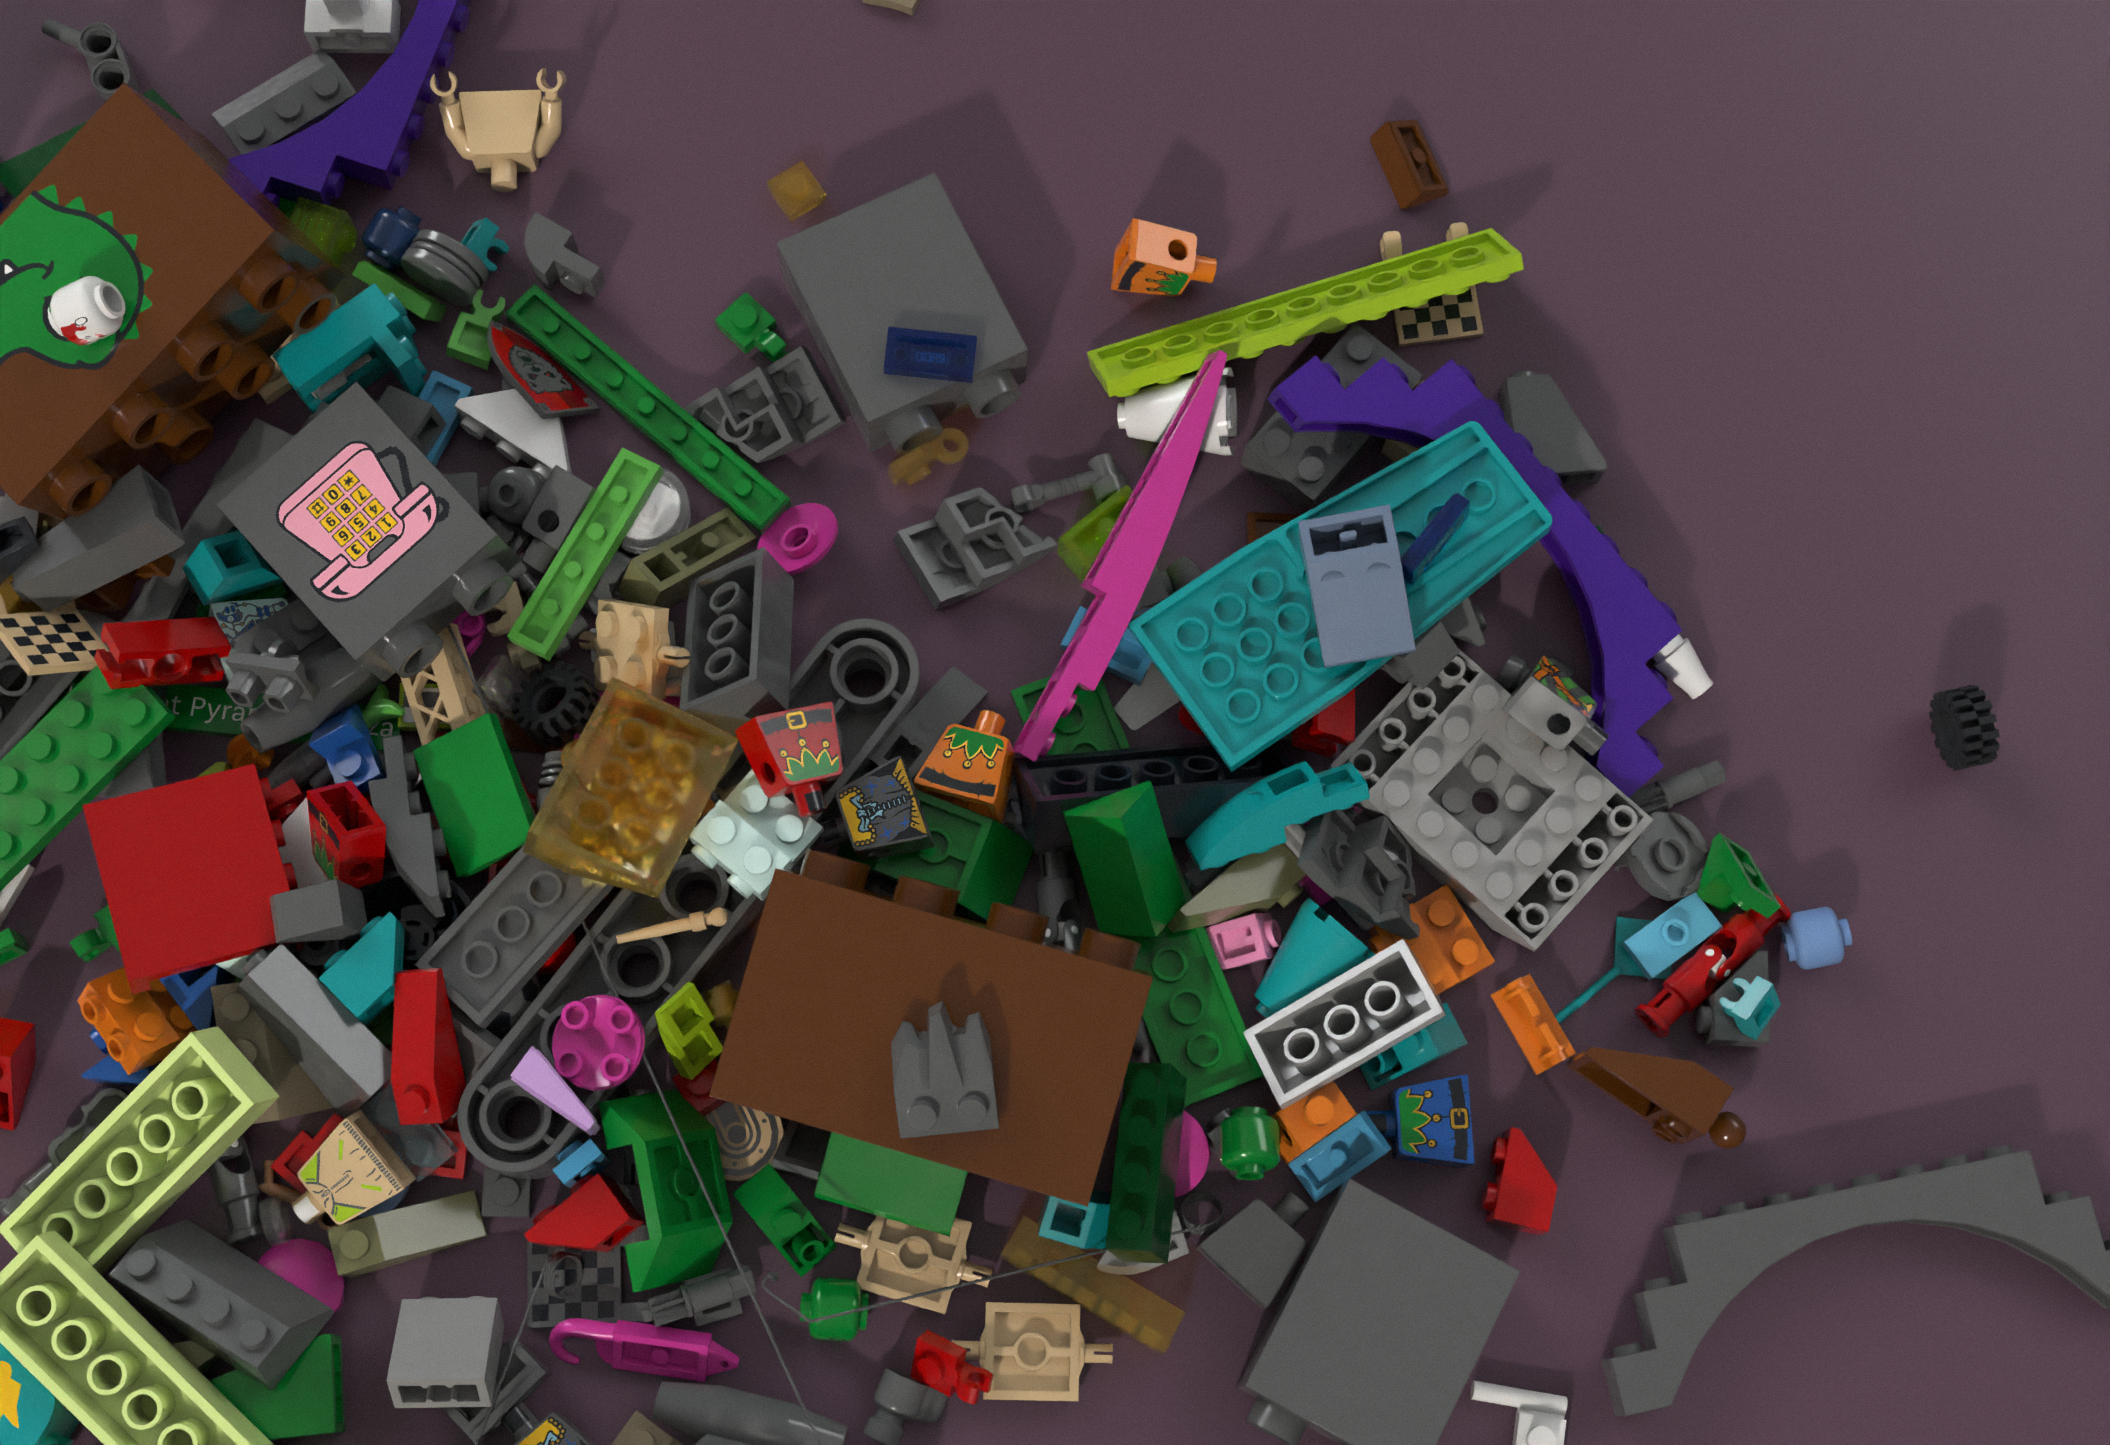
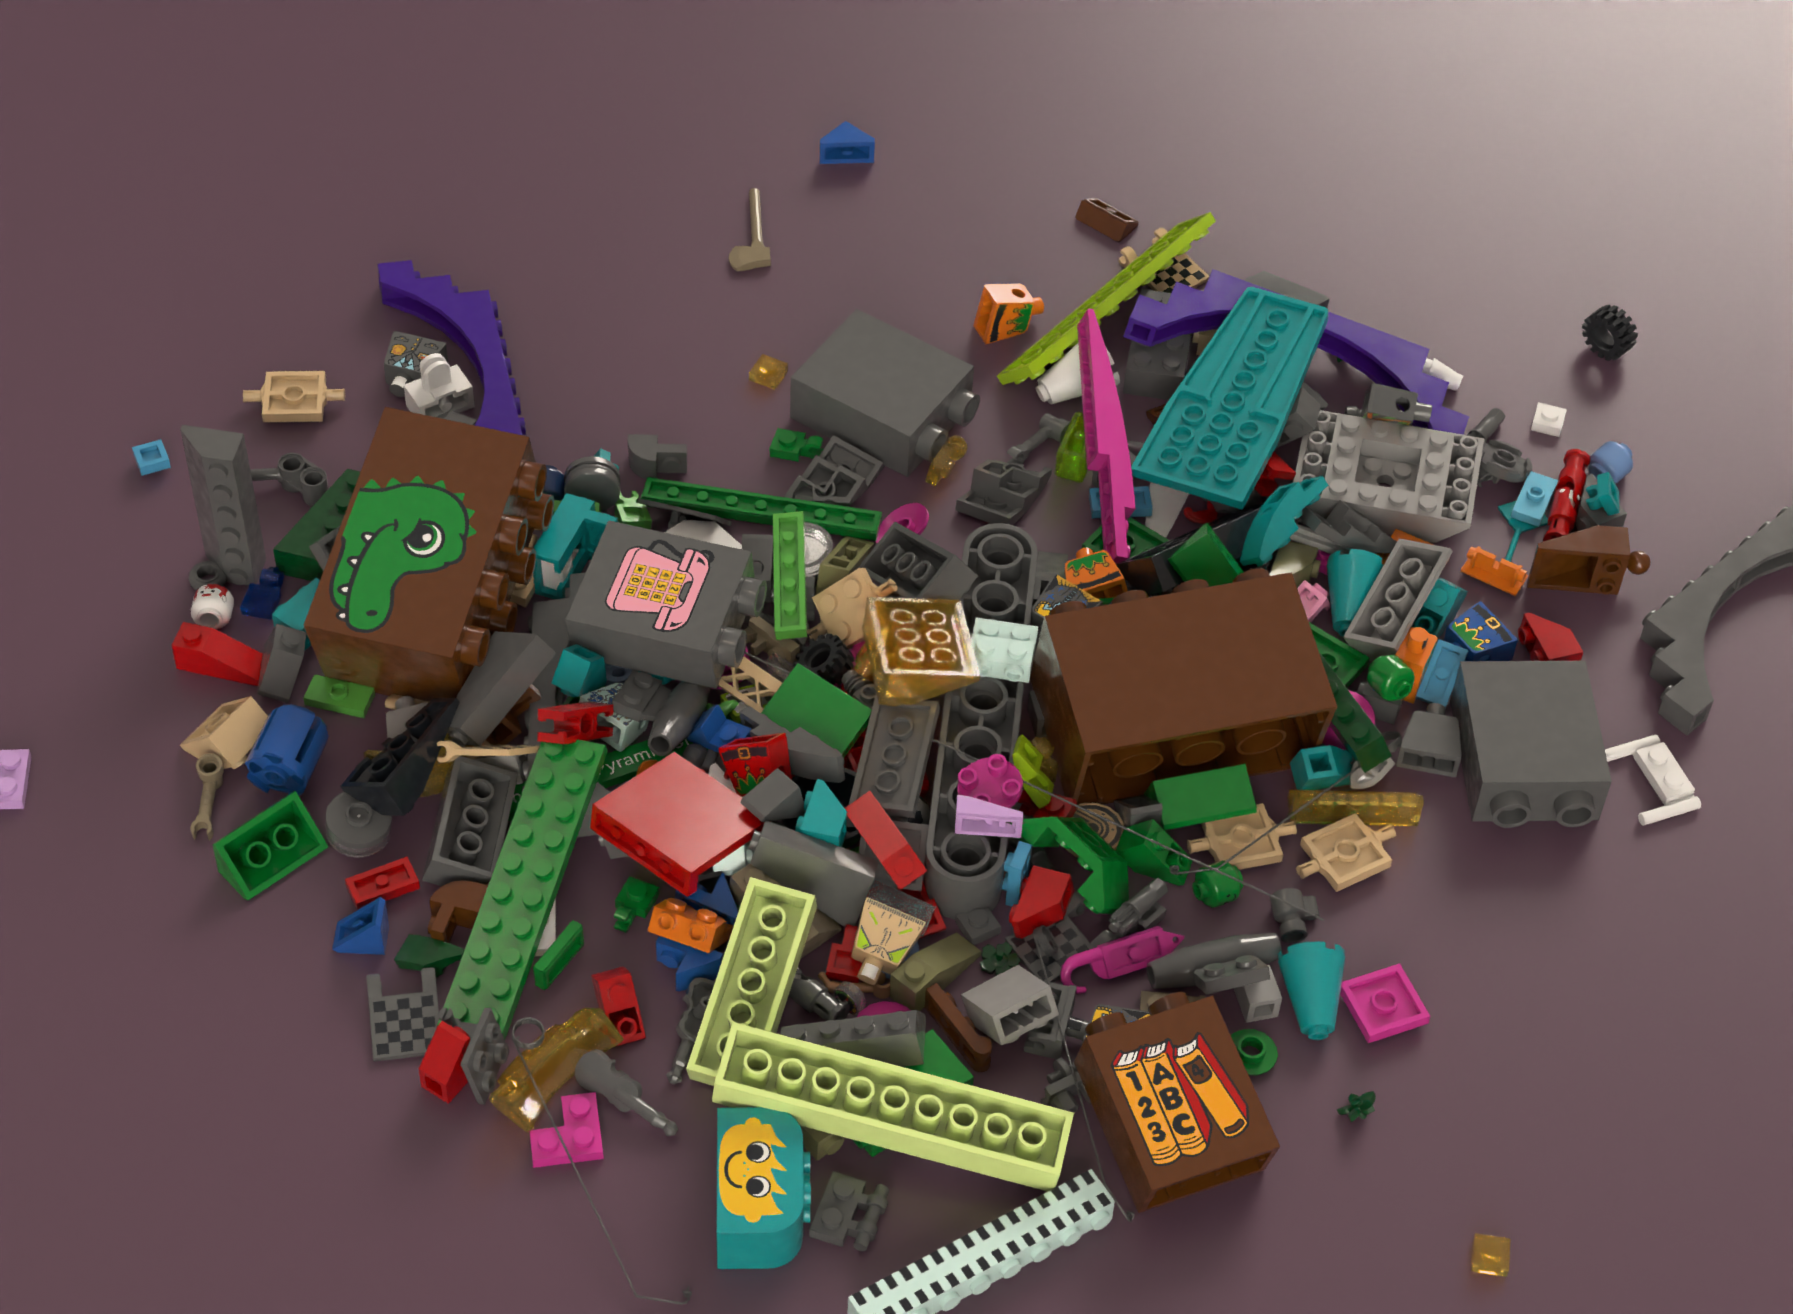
camera: 25 degrees left, 25 degrees down
(87, 310) = (440, 525): white head -> none
(275, 673) = (654, 700): dark grey hips -> none
(376, 1337) = (958, 1028): none -> reddish brown plate
(501, 1258) = (998, 959): none -> dark green plant
(503, 128) = (573, 409): tan torso -> none
(696, 921) = (998, 707): tan piece -> none
(794, 753) = (997, 592): red torso -> none
(930, 354) = (922, 388): clear blue tile -> none
(944, 1076) = (1213, 670): dark grey plate -> none
(944, 1368) = (1304, 877): red plate -> none
(1356, 586) = (1246, 378): sand blue slope -> none
(1434, 537) = (1272, 340): clear blue tile -> none
(1734, 880) = (1546, 452): green slope -> none
(1786, 814) = (1548, 419): none -> white plate

